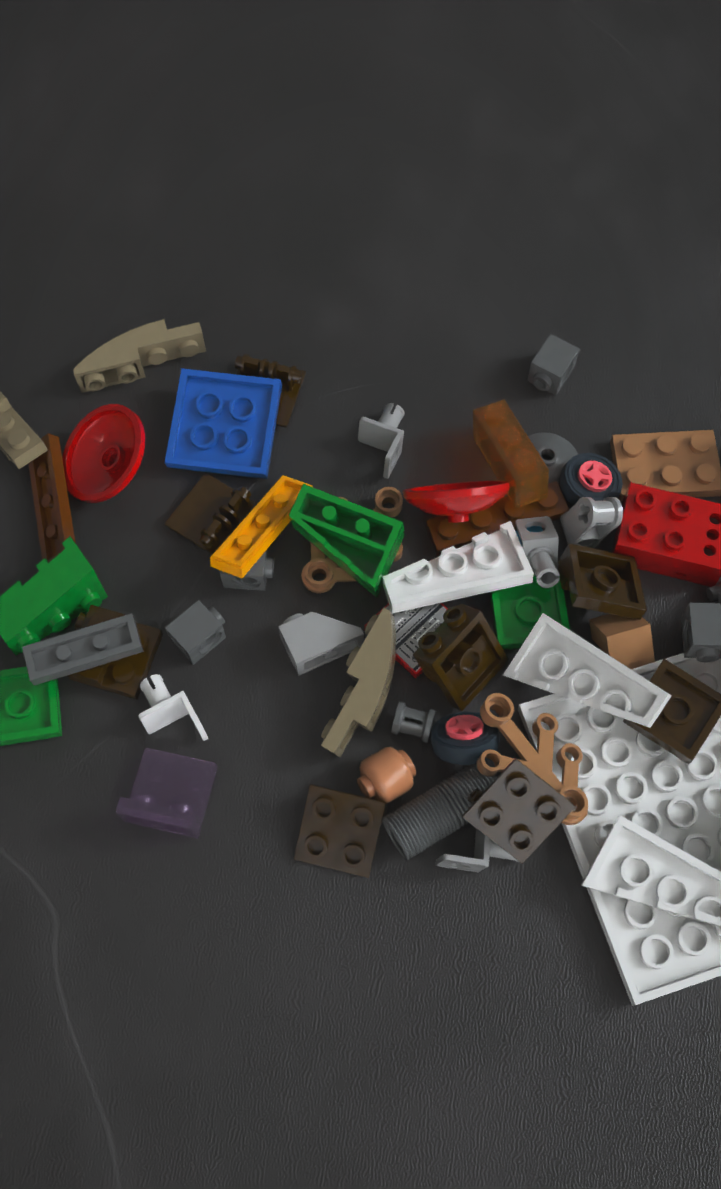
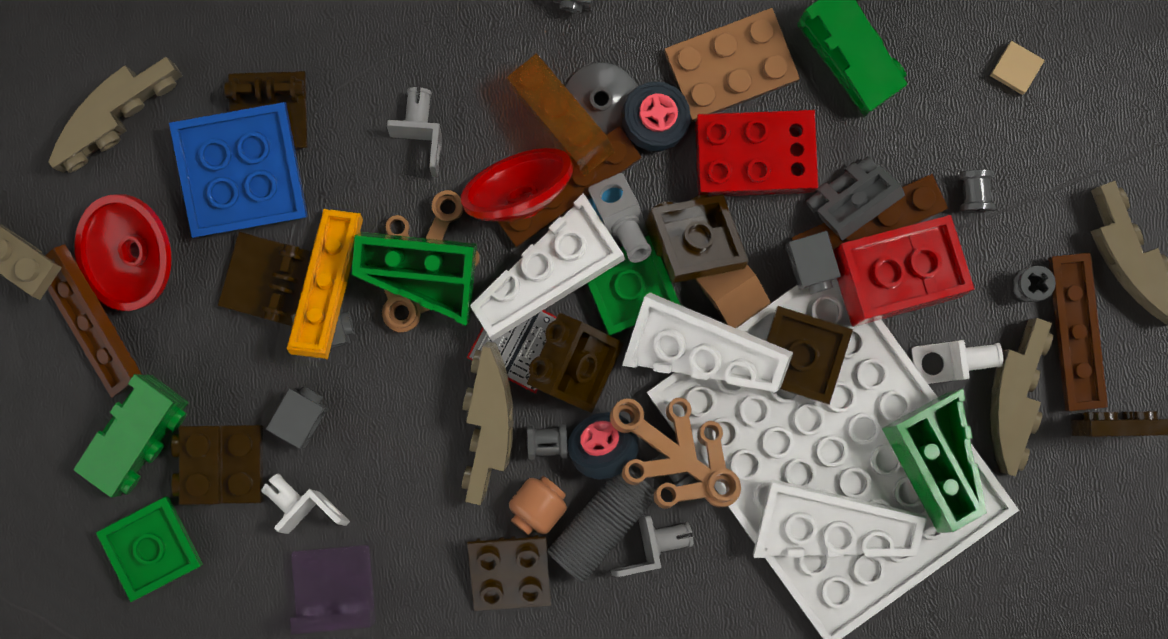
camera: 15 degrees left, 20 degrees up
(82, 649) = (194, 483): dark grey plate -> none
(317, 640) = (421, 388): light grey slope -> none
(517, 810) = (673, 514): hinge -> none
(591, 520) = (668, 169): light grey piece -> none

